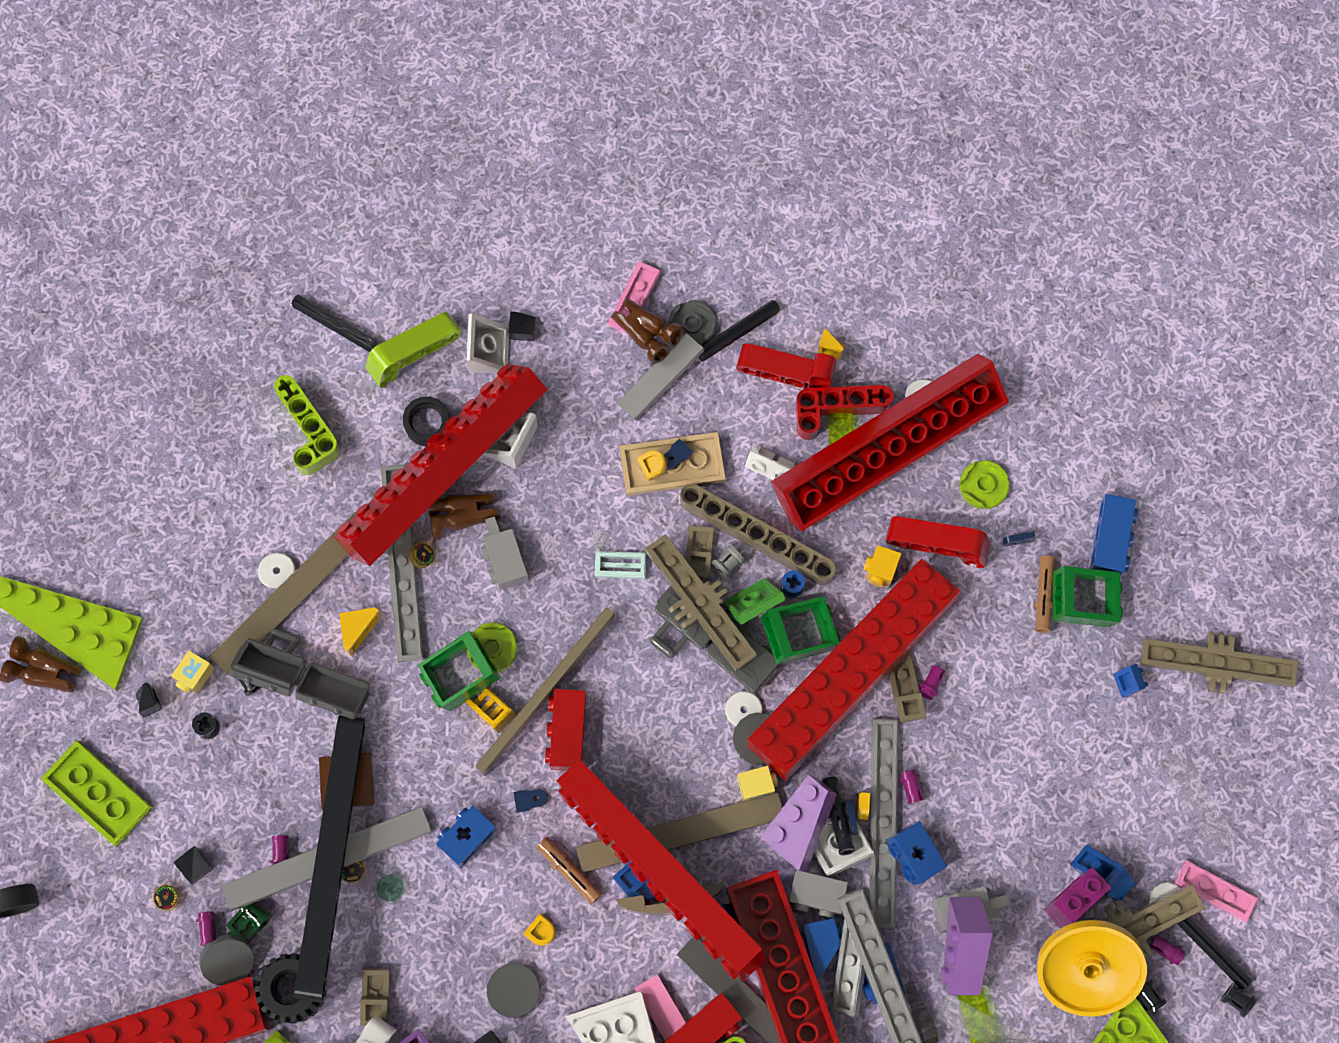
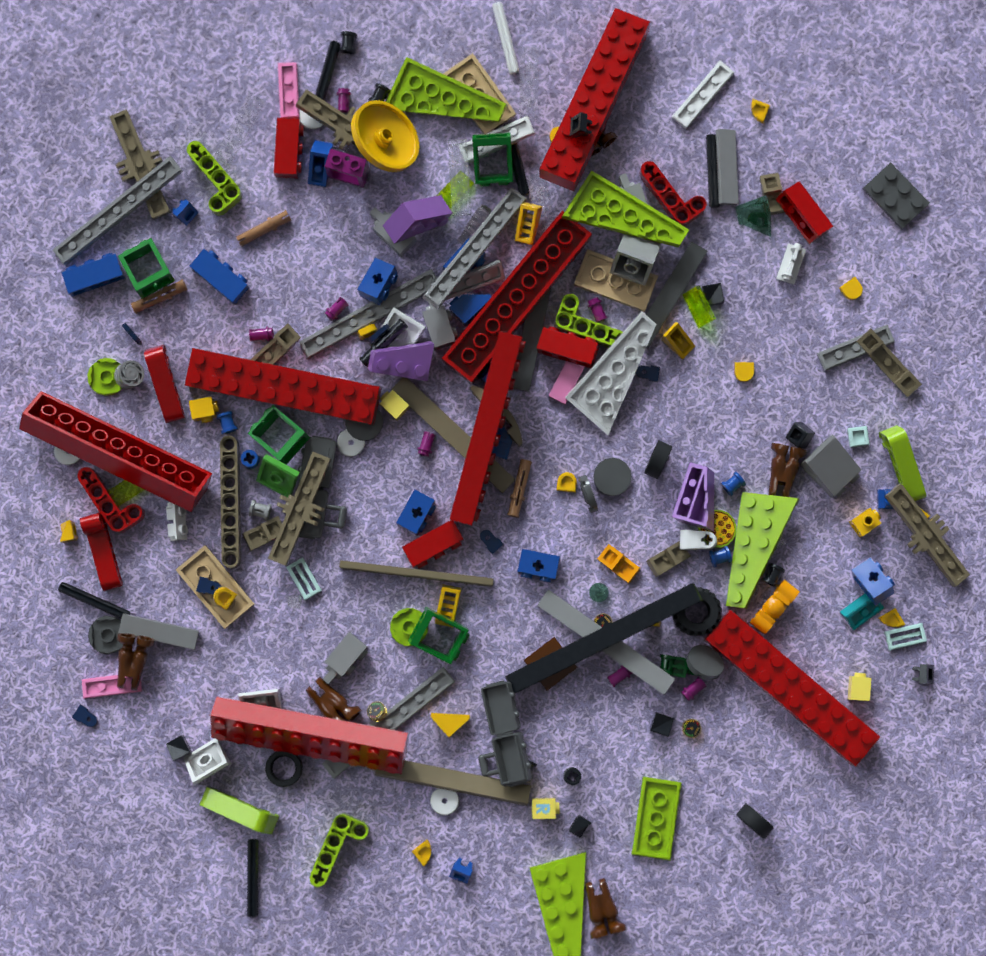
camera: 120 degrees left, 10 degrees up
(187, 540) = (461, 872): none -> blue tile
(238, 514) = (423, 852): none -> yellow tile
(407, 933) = (618, 563): none -> light orange slope
(508, 945) = (588, 493): none -> dark grey tile
(614, 718) = (415, 502): none -> blue brick
(622, 250) = (82, 714): none -> dark blue piece
(687, 792) = (426, 444): none -> magenta pin
(851, 583) = (227, 422): none -> blue bush
(971, 508) = (129, 374): none -> light grey wheel
(1029, 675) = (220, 275): none -> blue brick
(1059, 760) = (263, 228): none -> medium nougat pin
(1143, 846) = (288, 148): none -> red brick
(1159, 738) = (212, 174): none -> lime beam
(1175, 607) = (117, 210): none -> light grey tile

